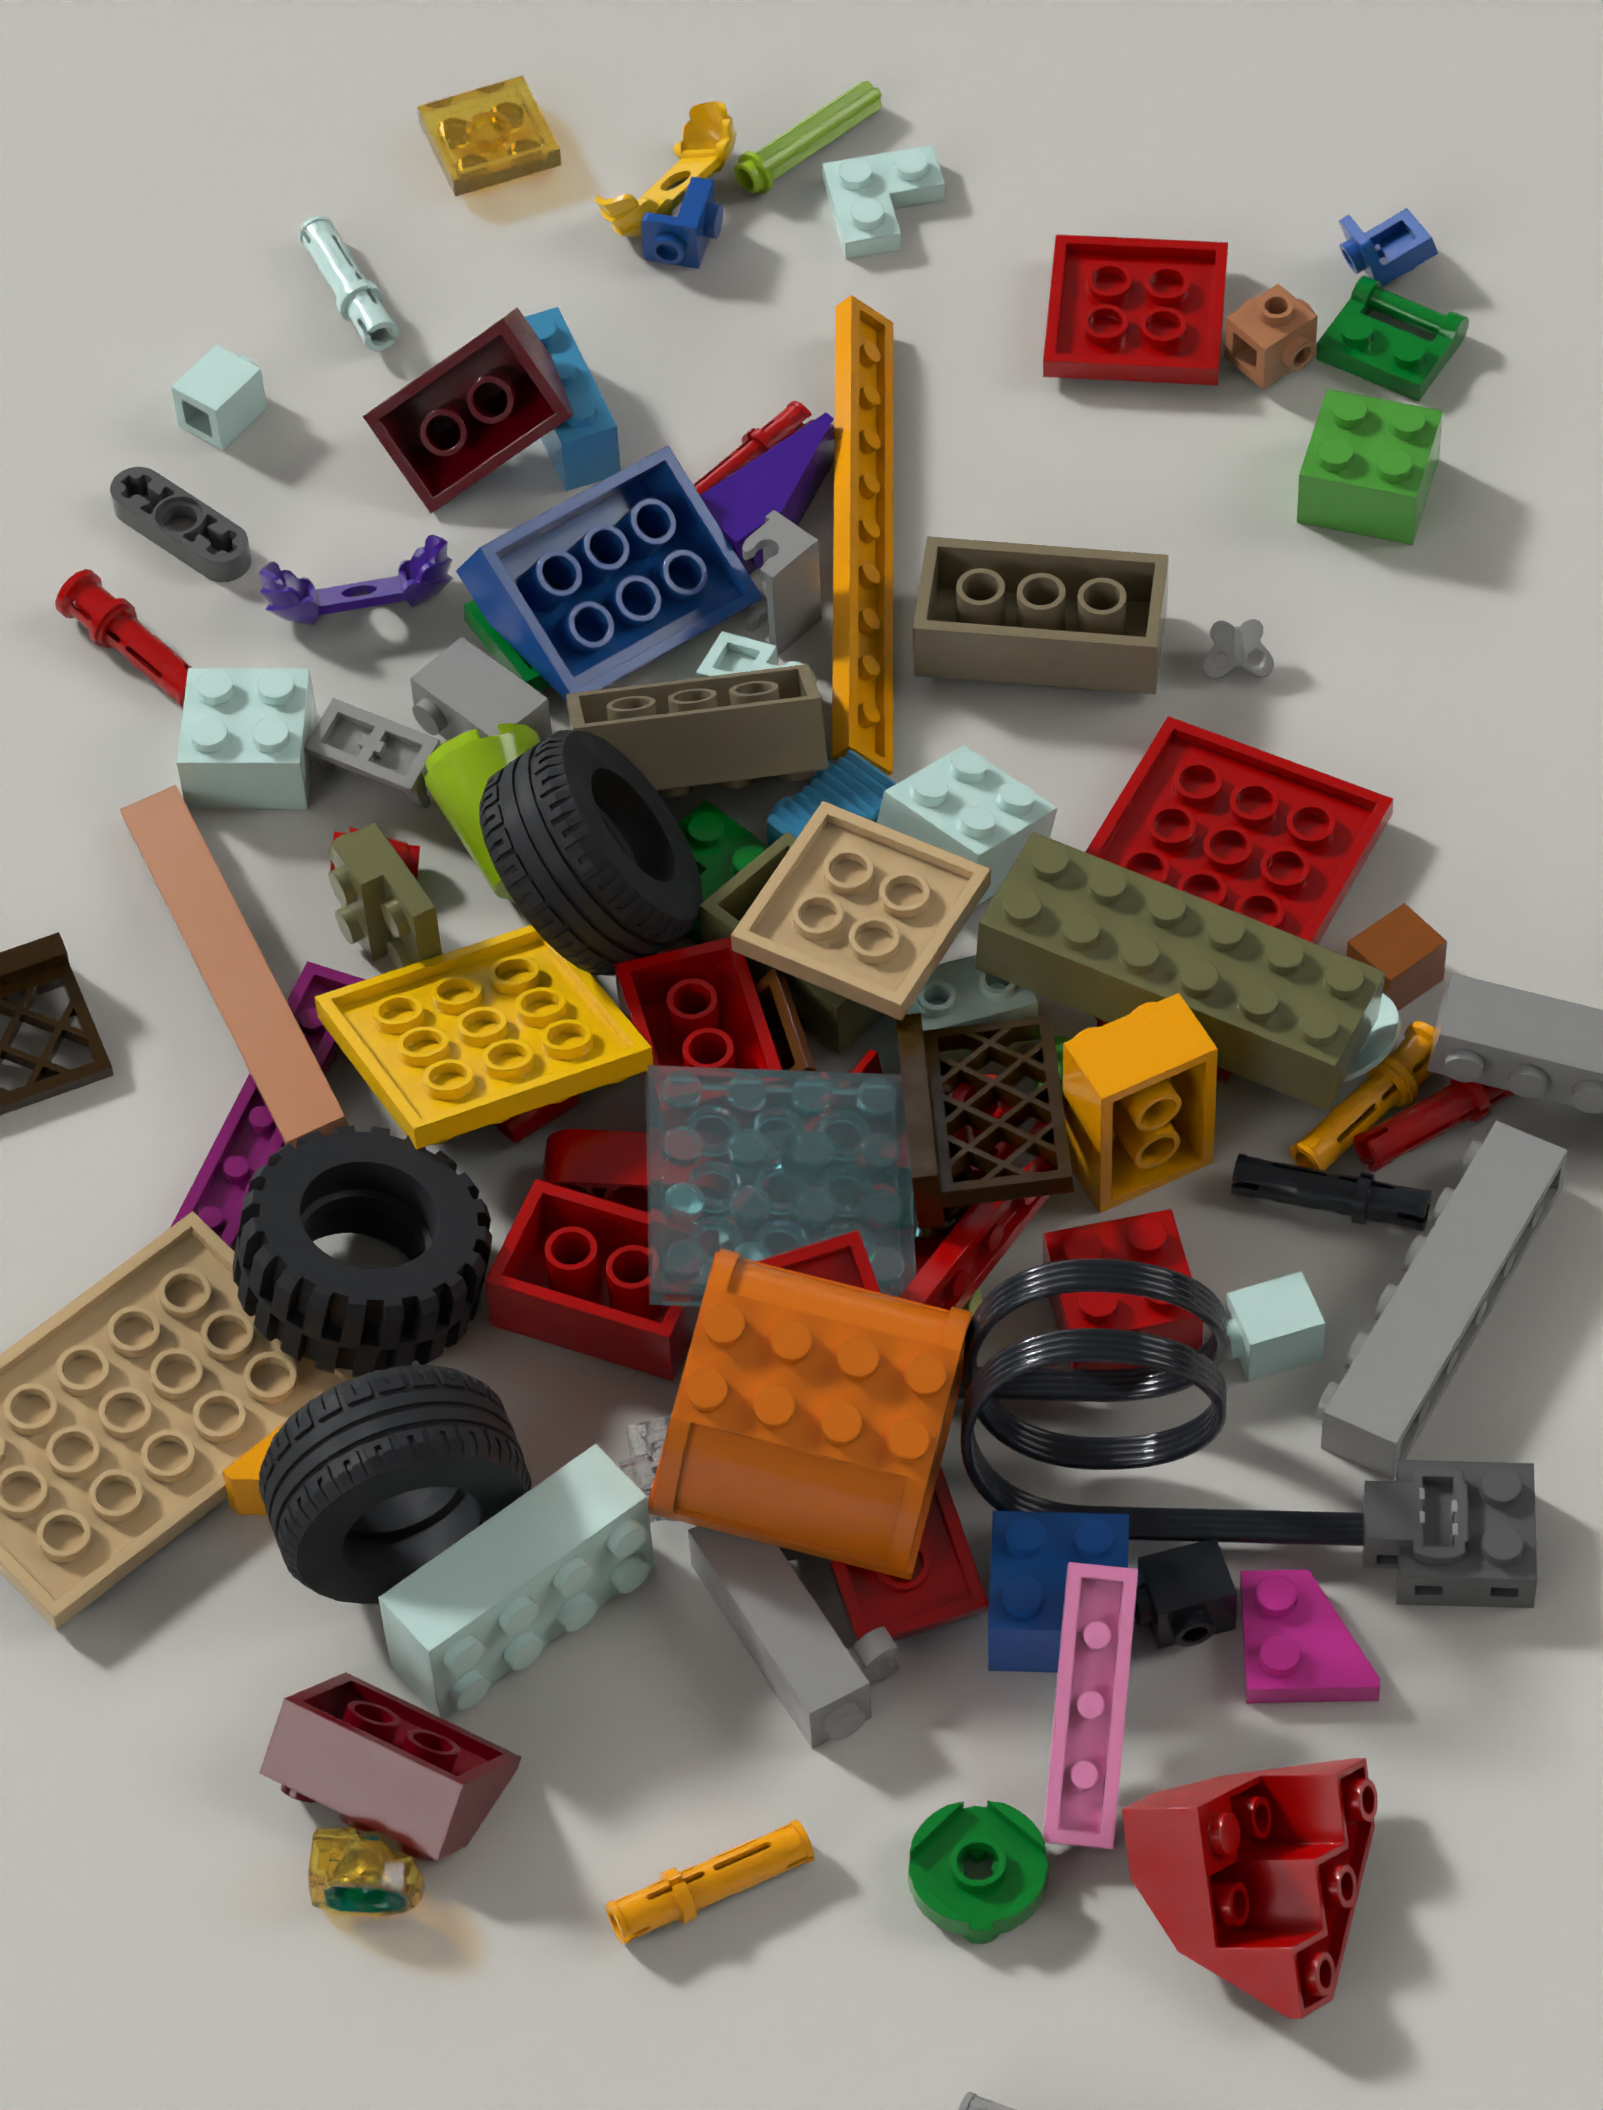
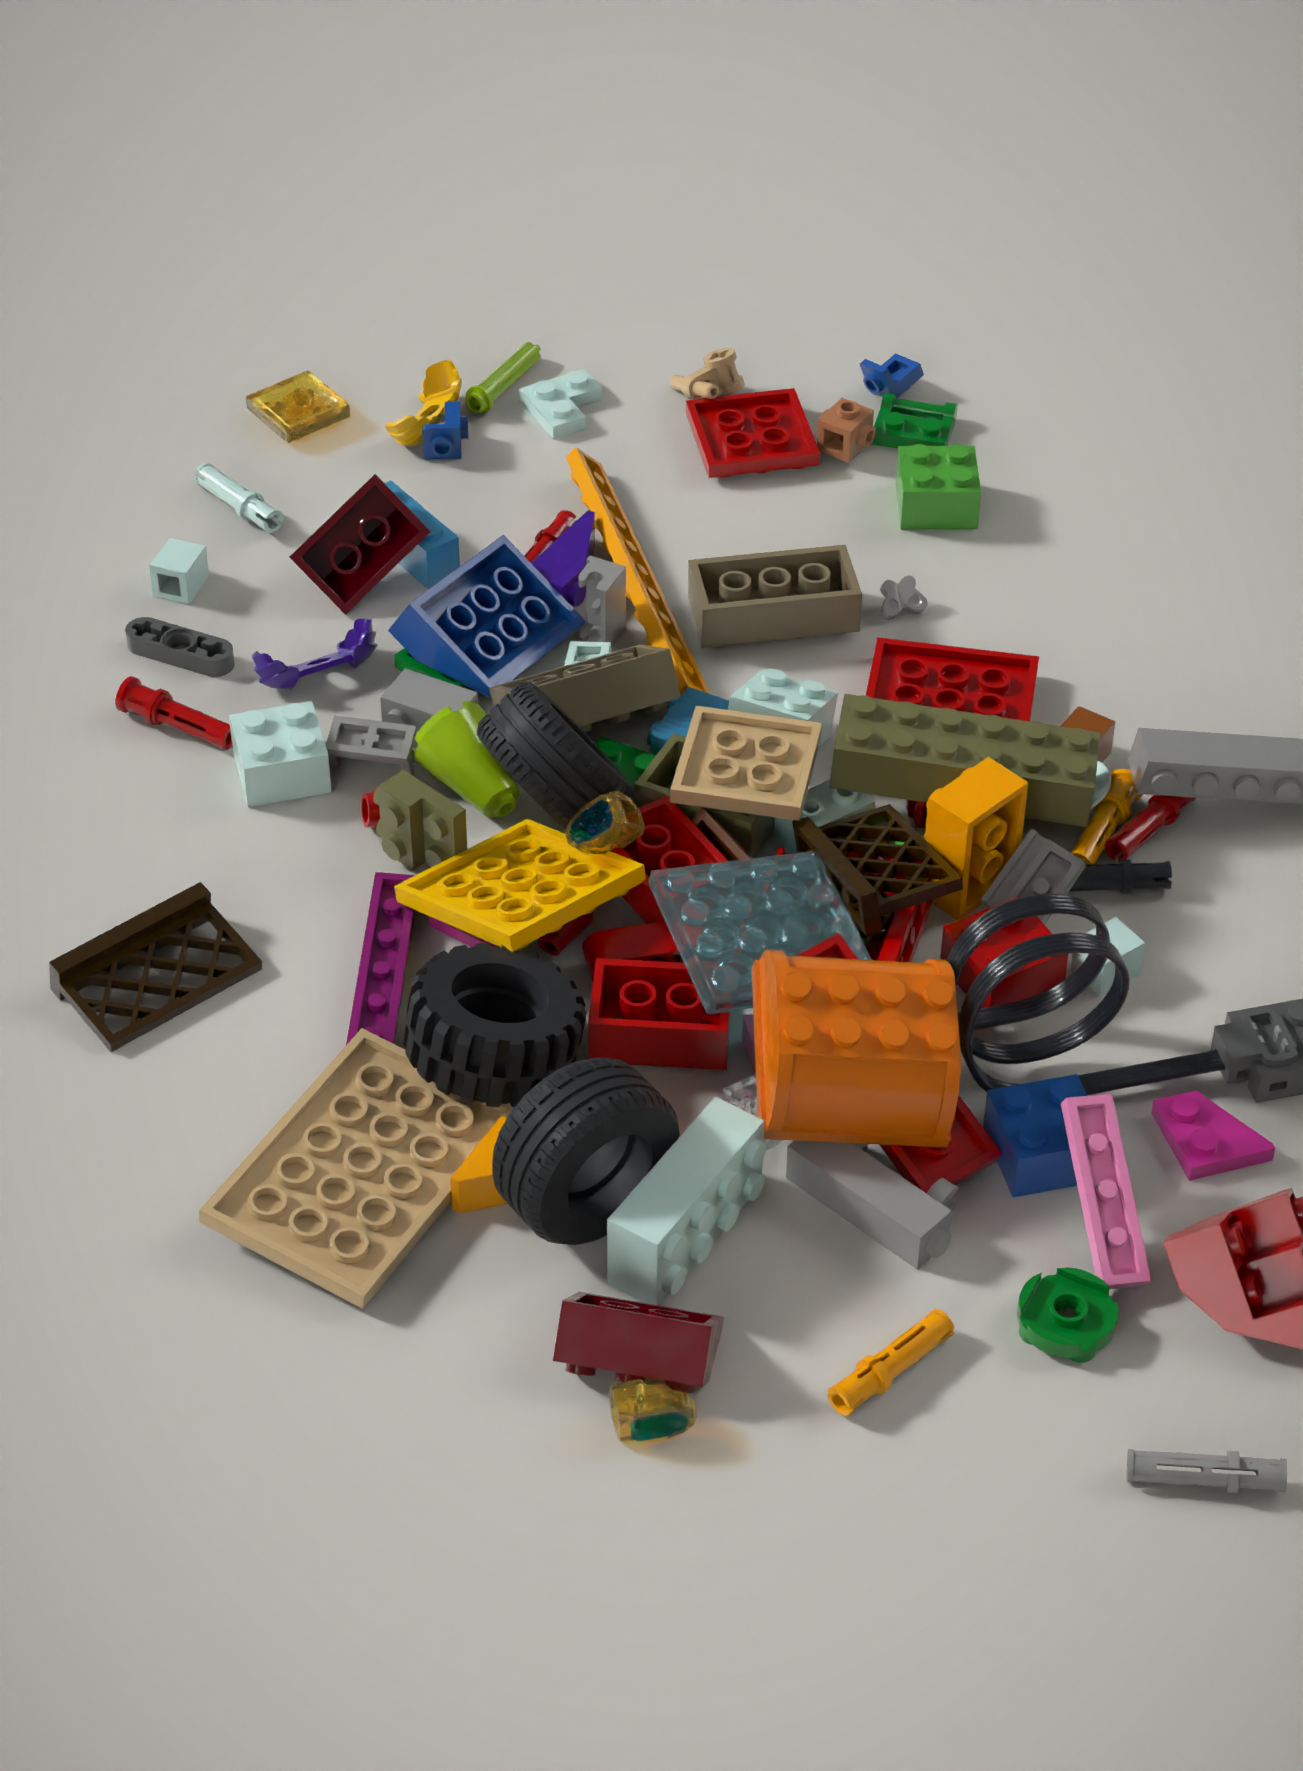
camera: 20 degrees left, 10 degrees down
(233, 967) = (325, 883): nougat tile -> none
(619, 973) = (605, 824): none -> clear yellow rock
(1113, 200) = (714, 380): none -> tan piece
(1185, 1594) = (1138, 1116): black brick -> none
(1215, 1183) = (1035, 869): none -> light grey plate
(1442, 1299) = (1205, 922): light grey brick -> none

